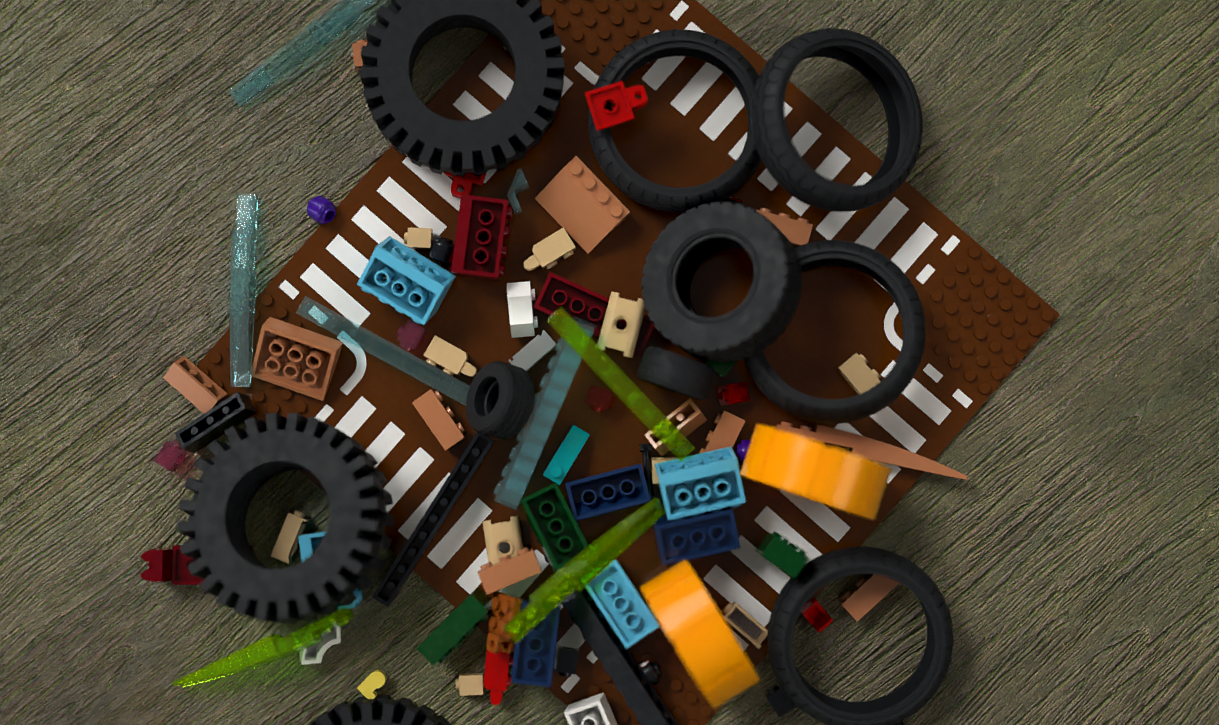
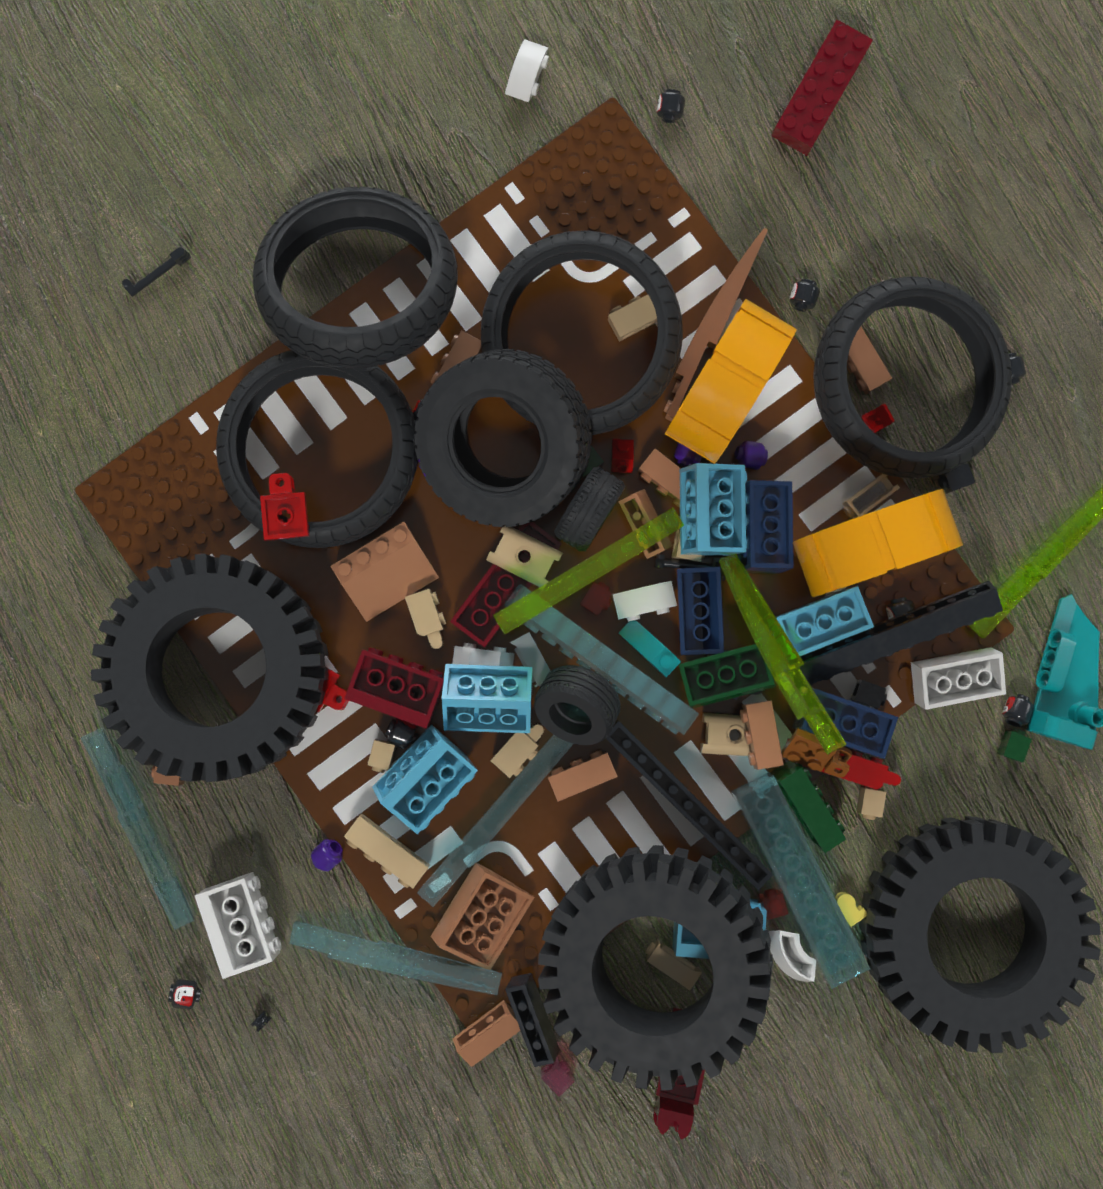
camera: 80 degrees left, 0 degrees up
(164, 184) = (260, 1021): none -> black bush
(173, 112) = (184, 994): none -> head
(233, 140) = (226, 932): none -> white brick
(267, 650) = (791, 1014): clear neon green slope -> none
(336, 261) = (387, 851): none -> tan brick
(363, 614) = (774, 903): none -> clear red brick
(388, 633) = (800, 880): none -> clear light blue brick
(410, 335) = (484, 787): clear pink brick -> none
(489, 320) = (487, 698): none -> medium azure brick
(518, 185) = (348, 635): clear light blue slope -> none
(607, 441) = (645, 600): none -> white brick
(759, 509) = (751, 455): none -> dark purple head
(784, 556) = (807, 438): dark green brick -> none
(916, 527) = (804, 295): none -> black head
(1062, 368) = (670, 105): none -> black head
(1063, 231) = (526, 71): none -> white brick
(1110, 502) = (822, 87): none -> dark red brick

